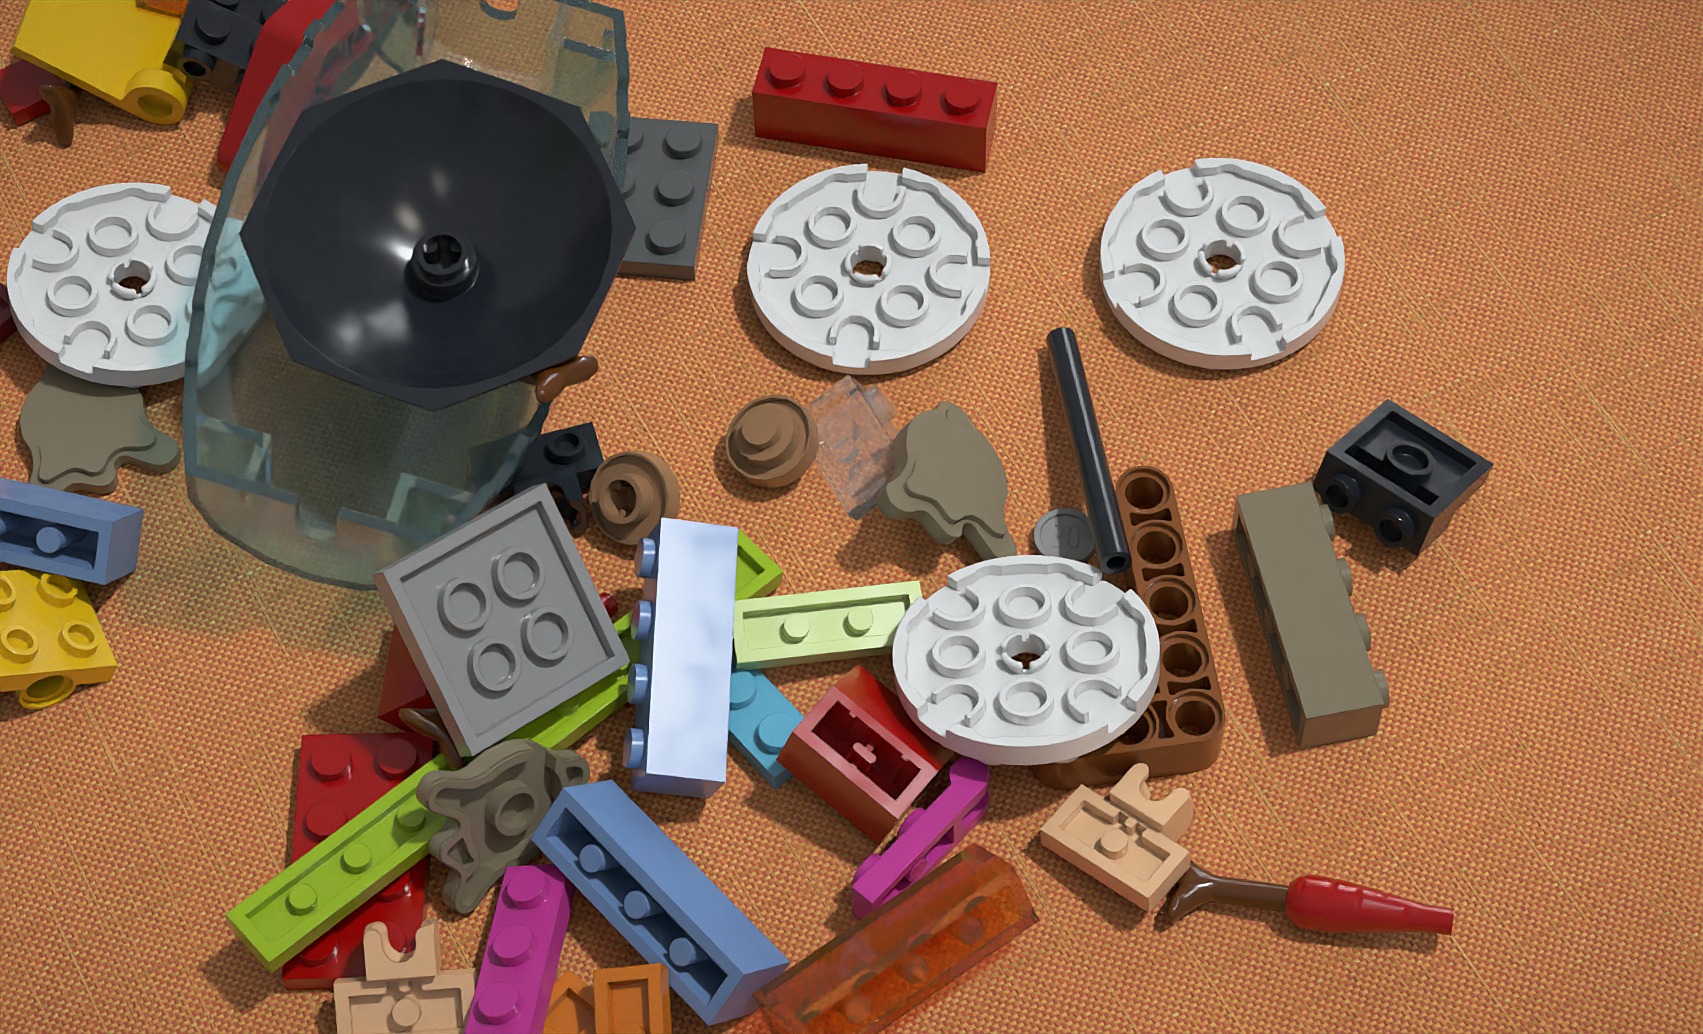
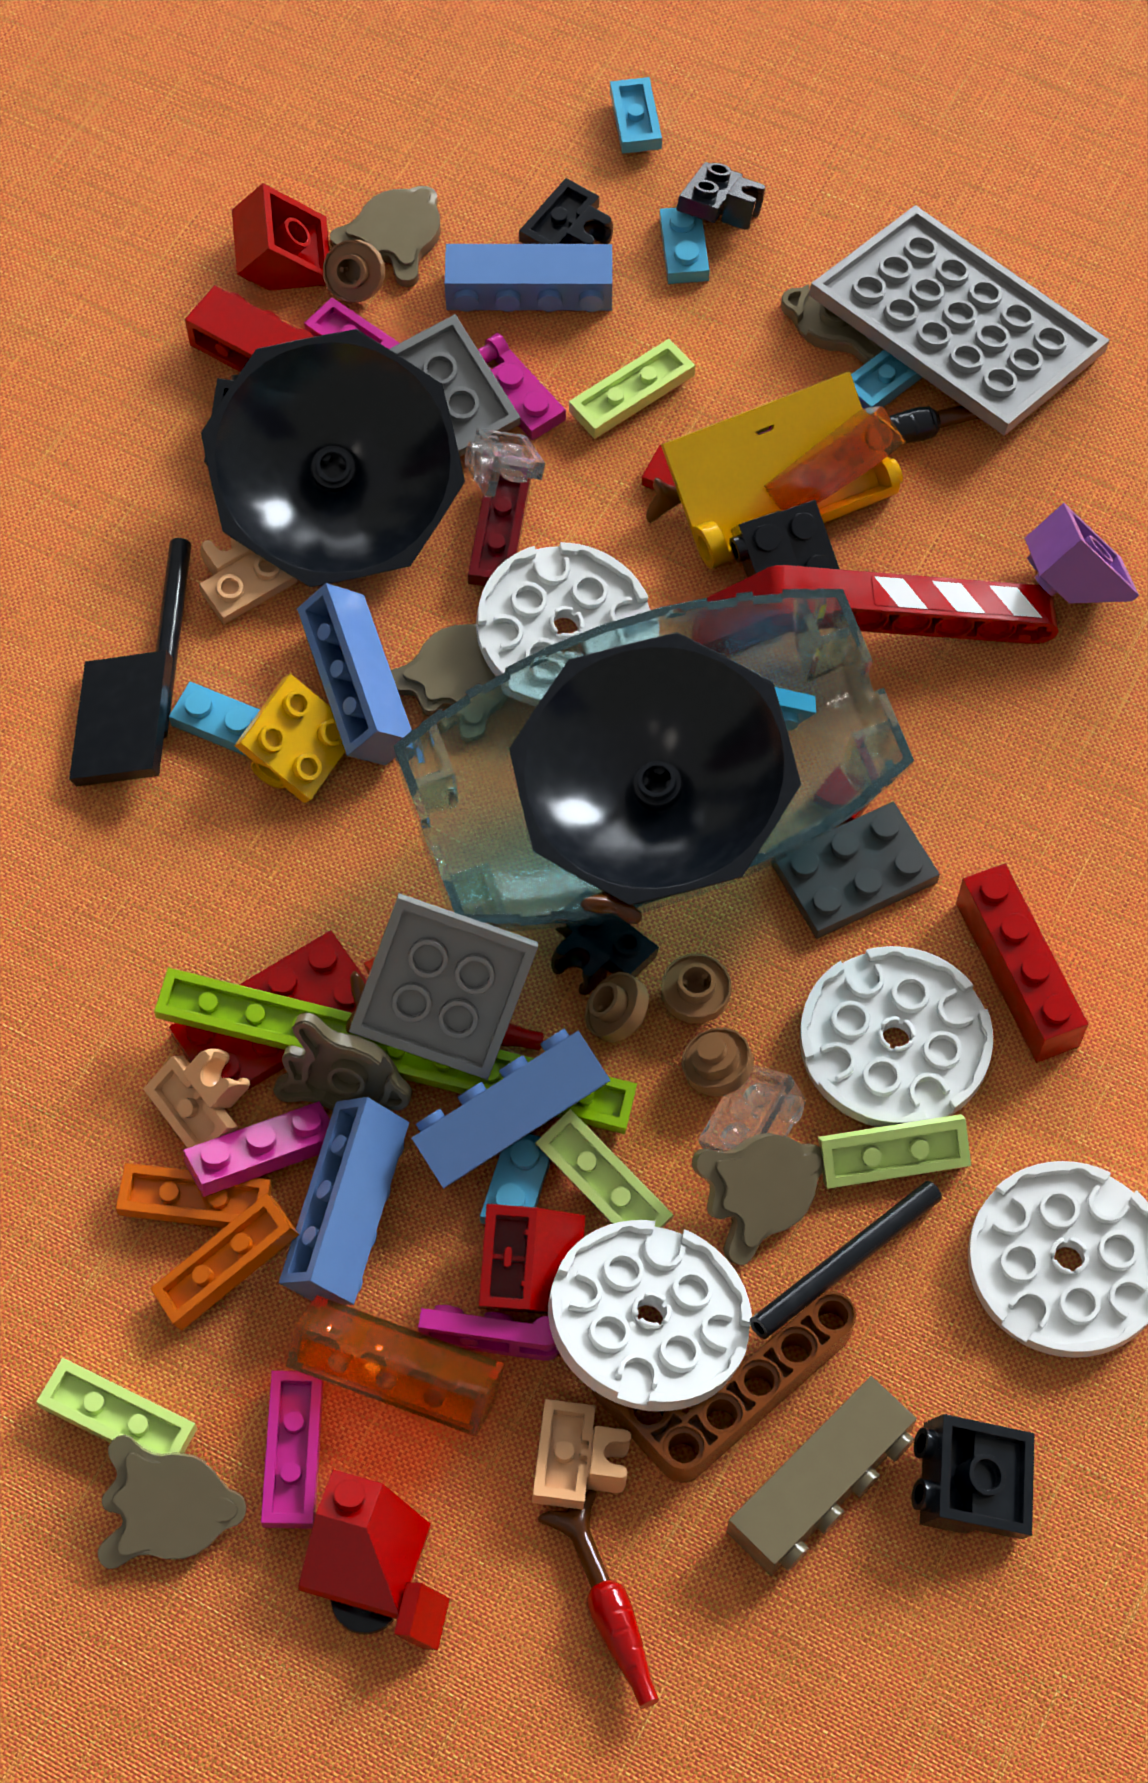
camera: 55 degrees right, 5 degrees up
(672, 411) = (696, 988): none -> medium nougat plate
(996, 340) = (895, 1151): none -> yellowish green plate
(1064, 535) = (775, 1280): light grey piece -> none

